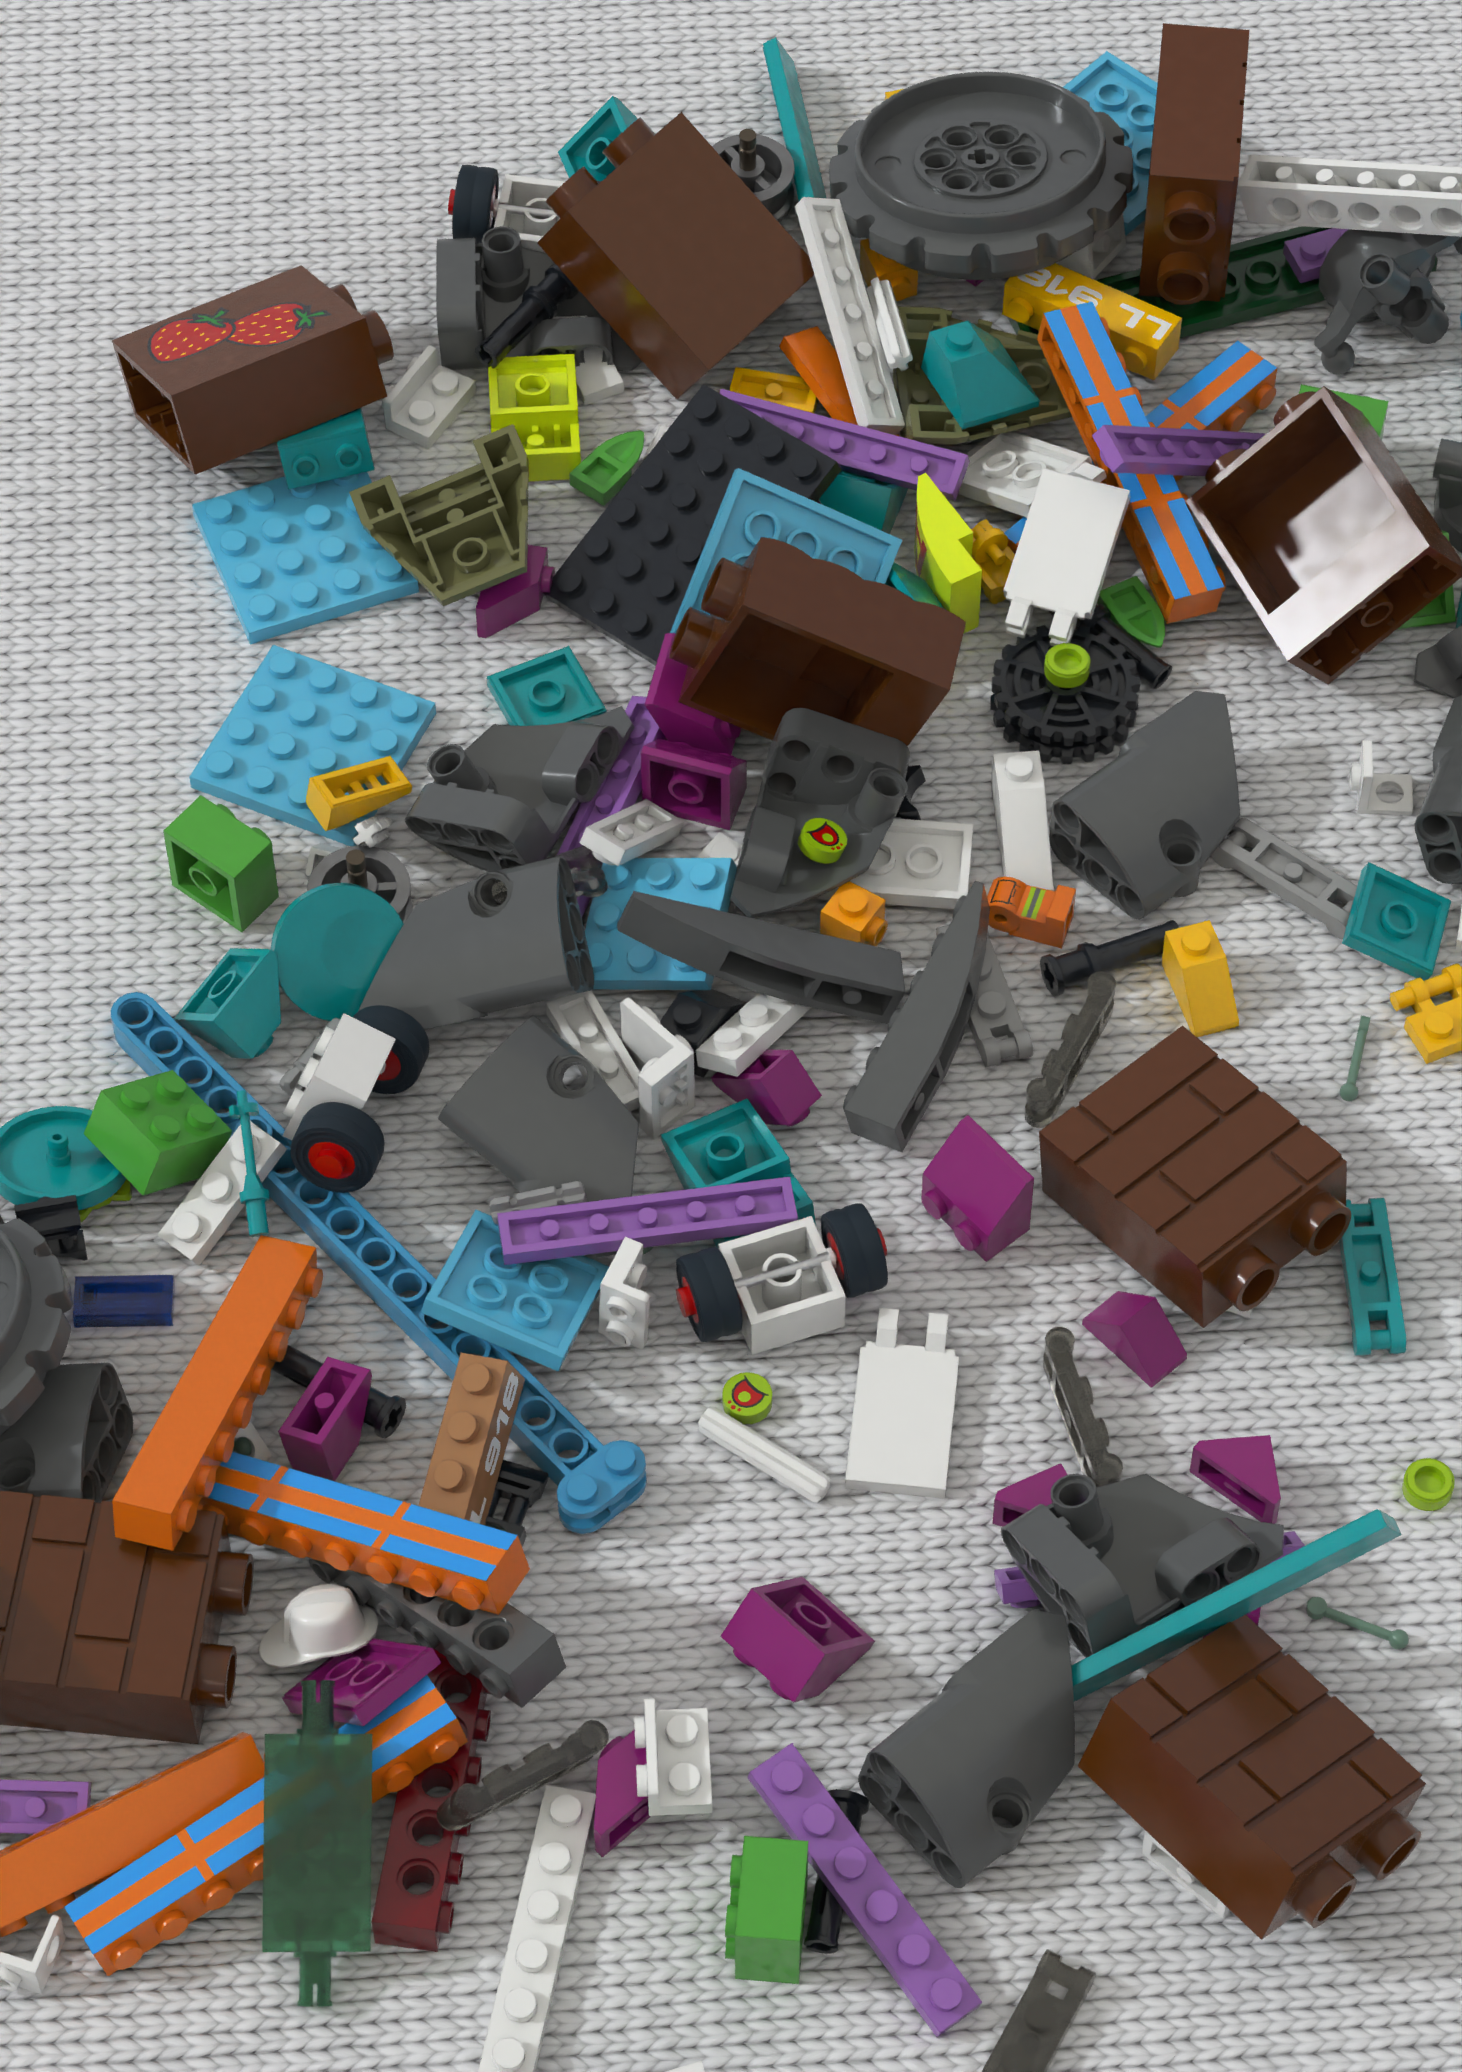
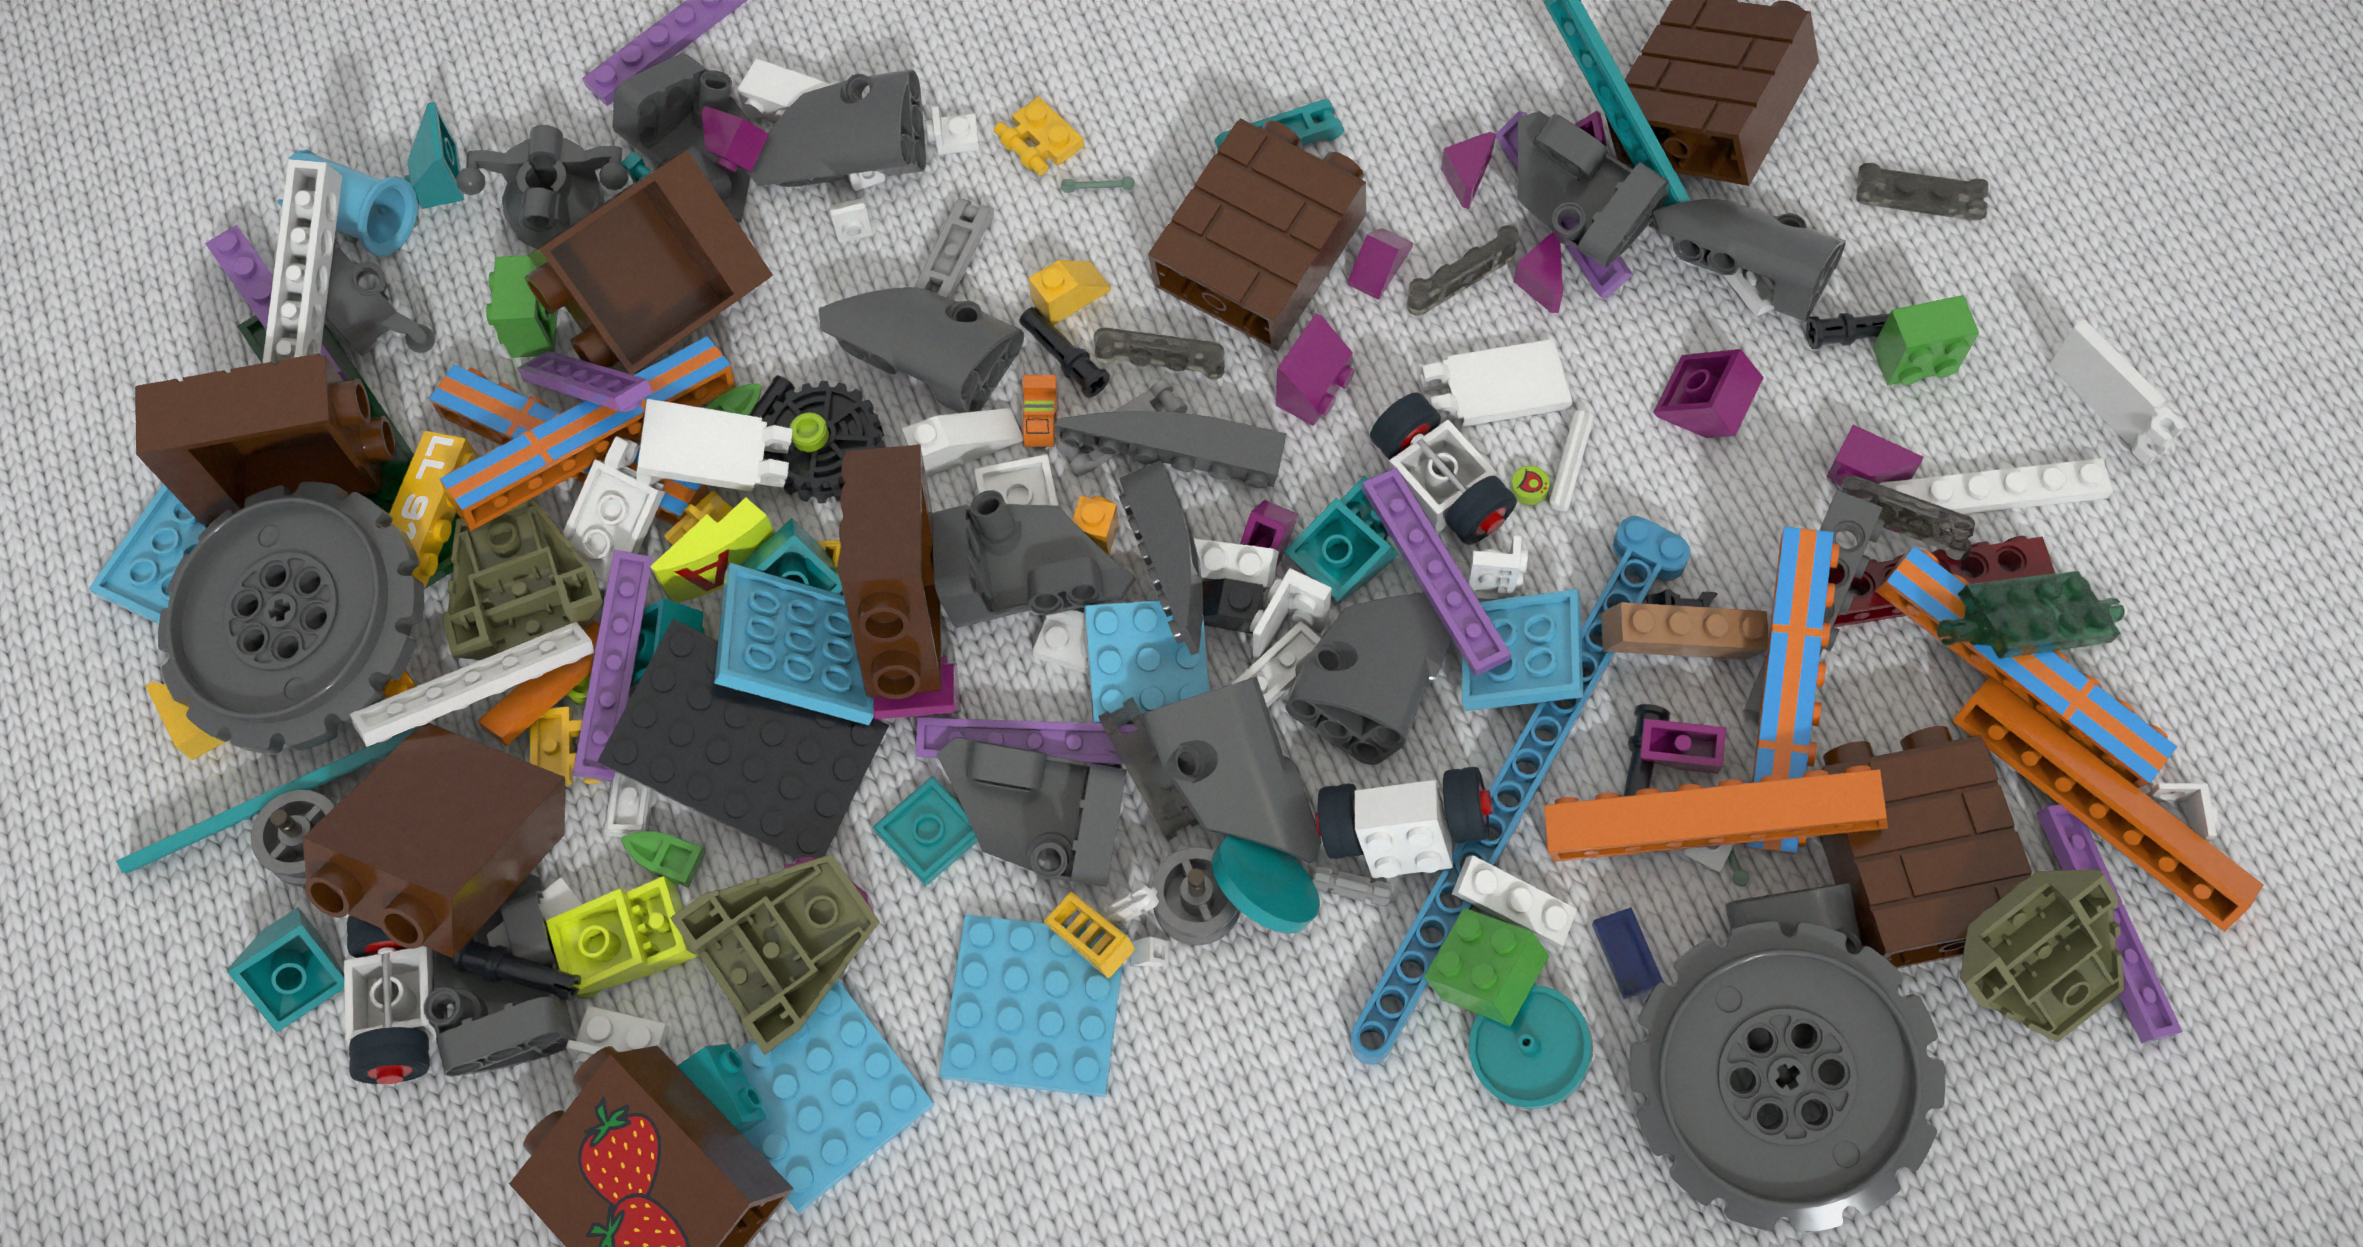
camera: 105 degrees left, 10 degrees up
(58, 1223) = (1607, 1019): black piece -> none
(221, 862) = (1203, 1015): bright green brick -> none
(237, 1004) = (1329, 961): teal slope -> none
(254, 1194) = (1521, 863): teal piece -> none
(318, 1625) = (1852, 701): white piece -> none
(368, 1679) = (1892, 639): magenta tile -> none
(545, 1197) = (1447, 652): light grey axle -> none
(631, 833) = (1071, 698): white plate -> none
(676, 1758) = (1854, 421): white bracket -> none
(693, 782) = (992, 675): magenta slope -> none
(822, 840) = (1044, 547): lime tile -> none
(865, 1890) = (1877, 298): medium lavender plate -> none
(889, 324) = (478, 647): white axle -> none
(975, 375) = (526, 566): teal slope -> none
(1318, 1609) = (1545, 65): sand green hinge -> none
(1396, 922) = (976, 178): teal tile -> none
(1428, 1484) = (1425, 72): lime tile -> none

